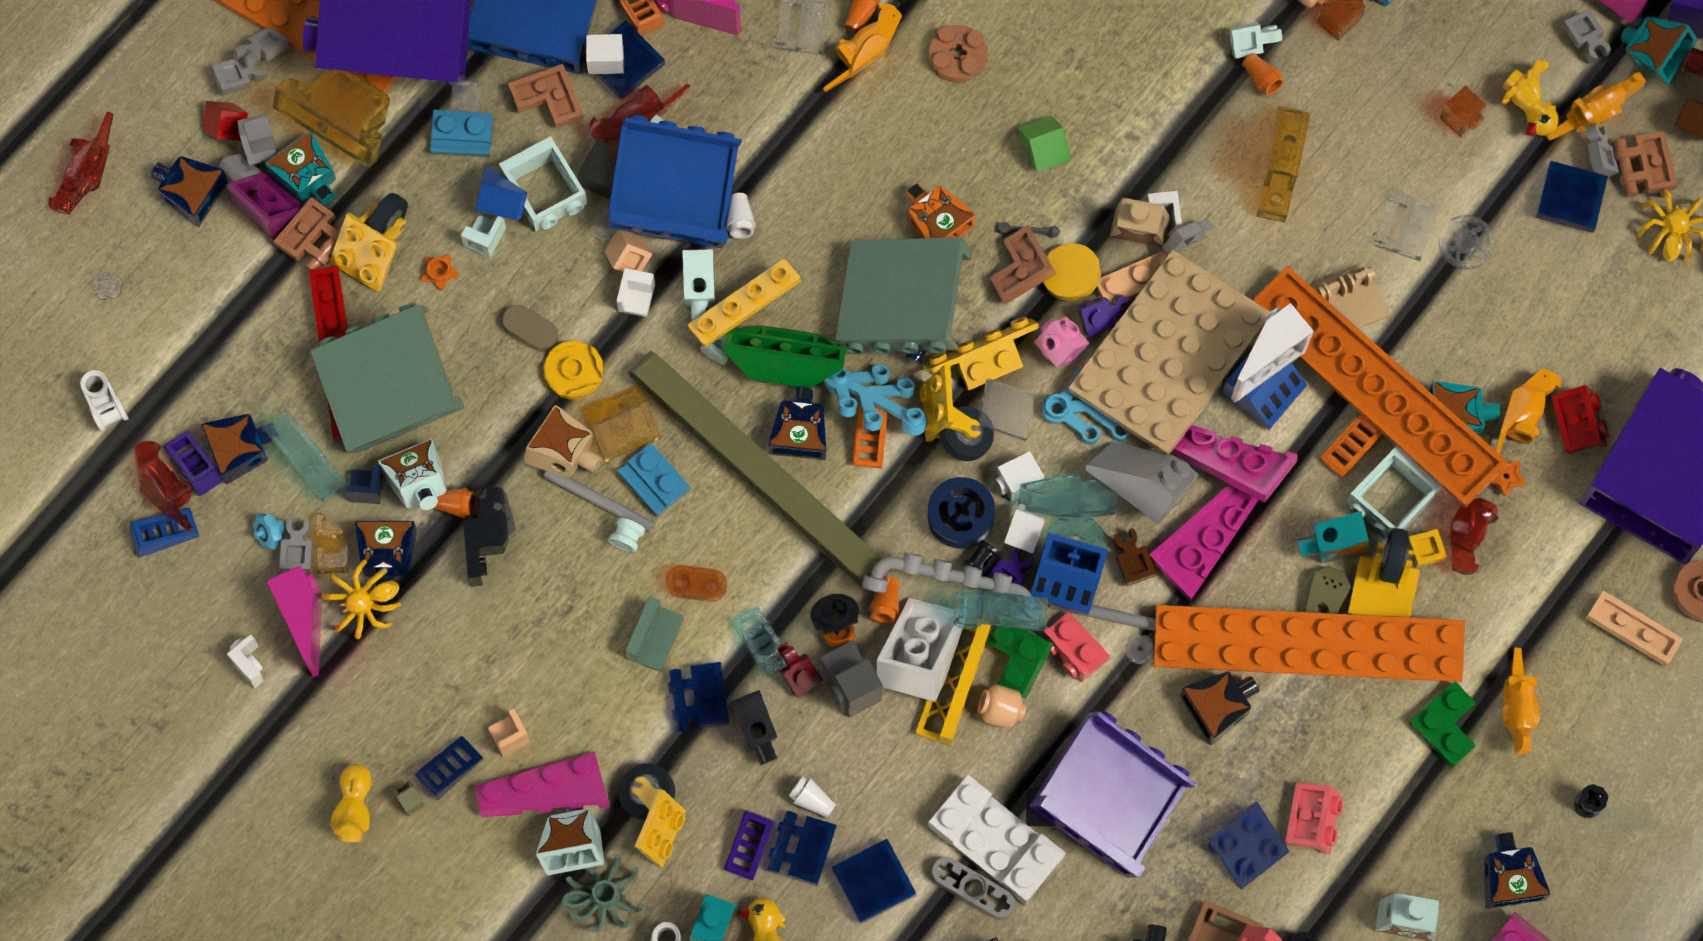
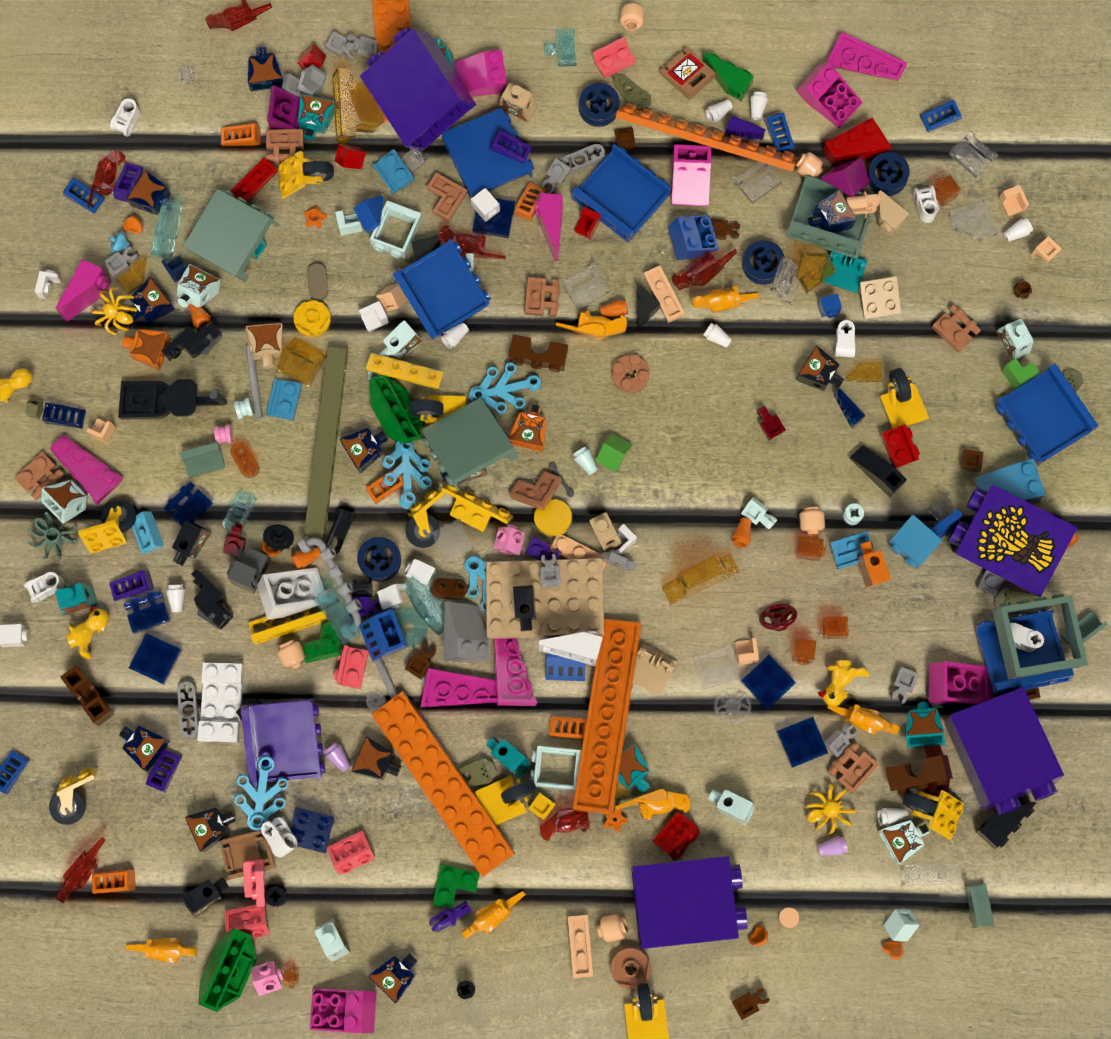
camera: 55 degrees right, 5 degrees up
(257, 287) = (253, 135): none -> orange slope
(258, 496) = (133, 225): none -> orange piece
(396, 168) = (350, 156): none -> red panel
(445, 595) = (147, 347): none -> torso
(495, 858) = (36, 472): none -> nougat plate
(514, 650) = (159, 399): none -> black plate
(641, 584) = (223, 434): none -> bright pink wheel
(695, 775) = (147, 532): none -> medium azure slope
(771, 88) = (535, 297): none -> nougat plate
(821, 302) = (436, 407): none -> plate
(829, 154) = (553, 358): none -> reddish brown arch
(851, 759) = (210, 602): none -> black plate
(857, 213) = (502, 390): none -> medium azure plant
(882, 530) = (340, 528): none -> black piece
(1027, 182) = (585, 460): none -> light aqua cone
(1067, 456) = (451, 588): none -> reddish brown plate
(1150, 319) = (550, 573): none -> light grey plate
(1160, 871) = (261, 795): none -> medium azure plant
(1161, 368) = (524, 597): none -> black torso
(1178, 745) = (337, 756): none -> lavender cone
(1232, 888) = (280, 838): none -> white piece
(1401, 111) = (778, 619): none -> dark red piece
(1413, 175) = (747, 651): none -> light nougat panel
(1460, 58) = (834, 627): none -> clear orange brick
(1469, 180) = (768, 682): none -> clear blue plate
(1484, 753) = (449, 917): none -> dark purple arm
(1604, 320) = (740, 810): none -> light aqua torso
(1640, 573) = (612, 927): none -> light nougat head

